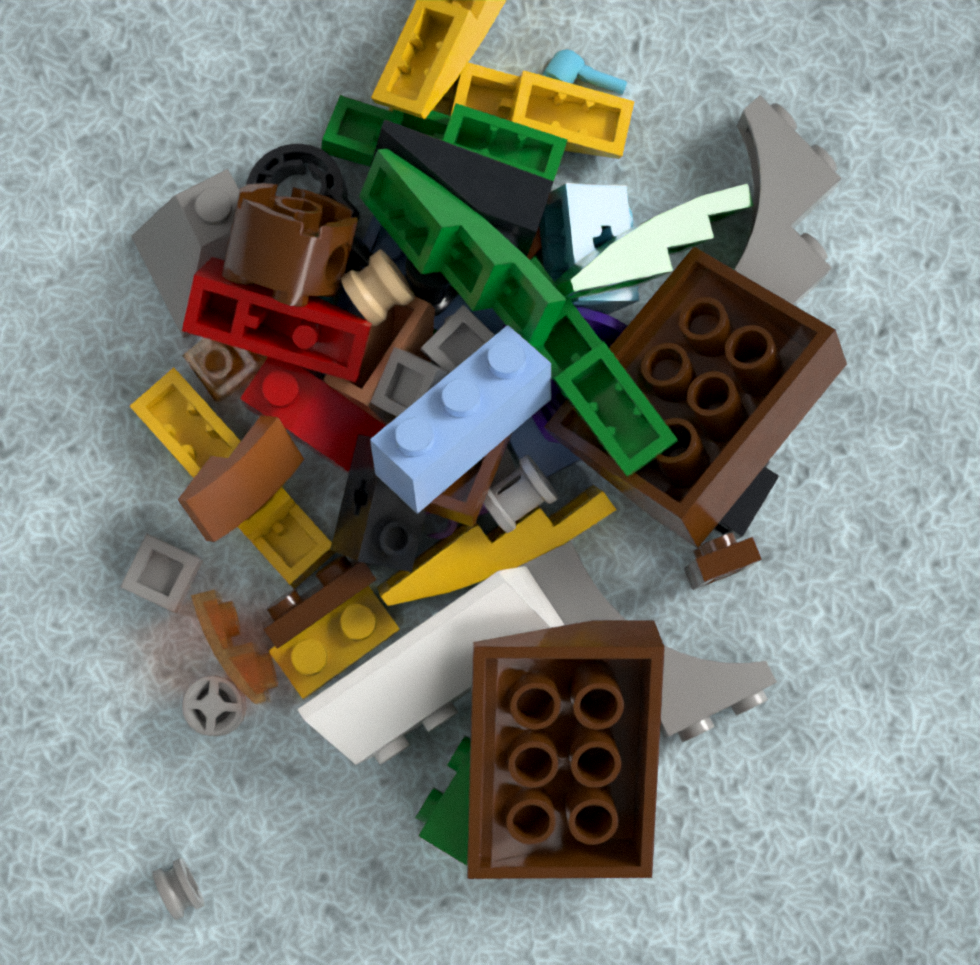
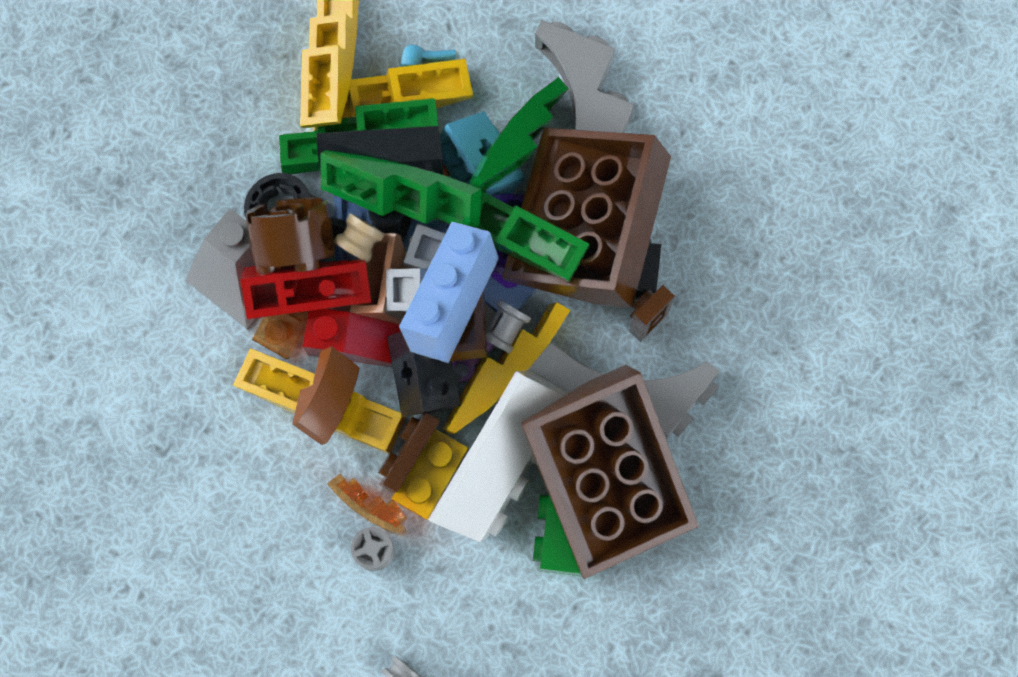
camera: 20 degrees left, 5 degrees down
(161, 573) = (300, 481): light grey plate -> none

